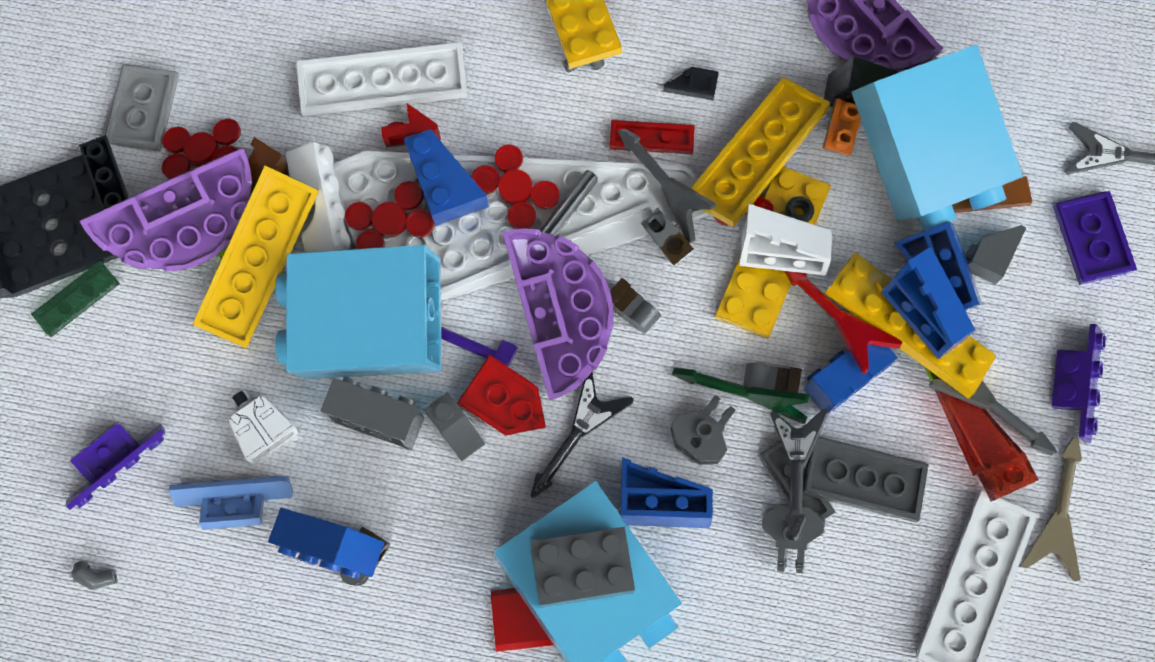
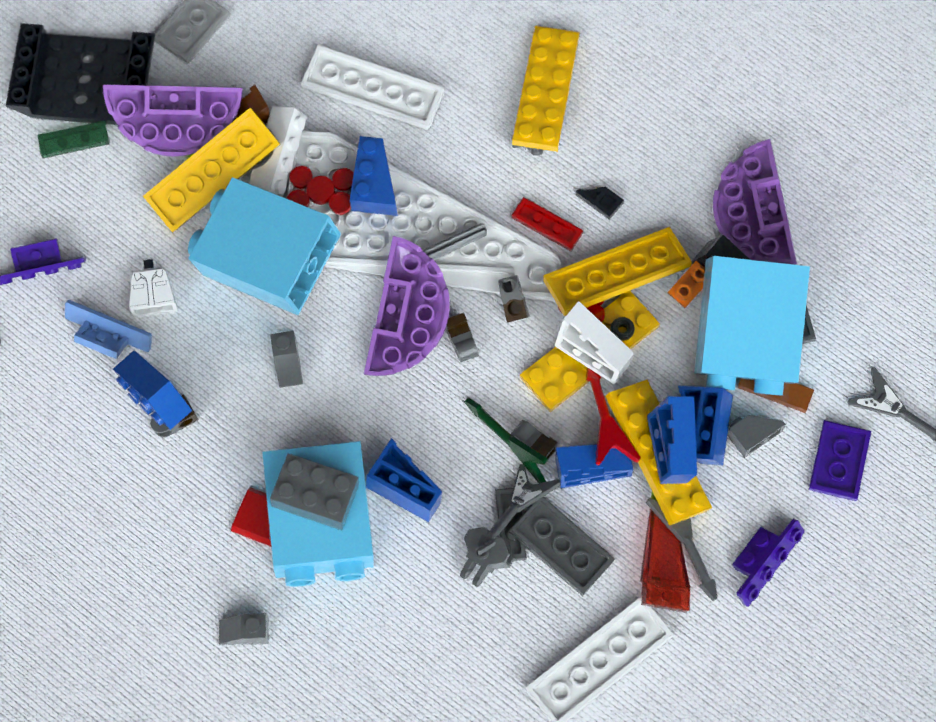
camera: 30 degrees right, 5 degrees down
(199, 147) = (215, 73): red piece -> none
(373, 412) = (234, 319): dark grey brick -> none
(418, 122) = (378, 131): red slope -> none
(503, 399) = (332, 357): red tile -> none
(504, 352) = (347, 328): dark purple piece -> none
(516, 187) = (424, 210): red piece -> none
(588, 416) = (386, 401): piece -> none
(679, 196) = (538, 274): dark grey piece -> none
(704, 431) = (462, 452): dark grey hinge -> none
(1057, 533) = (682, 658): dark tan piece -> none

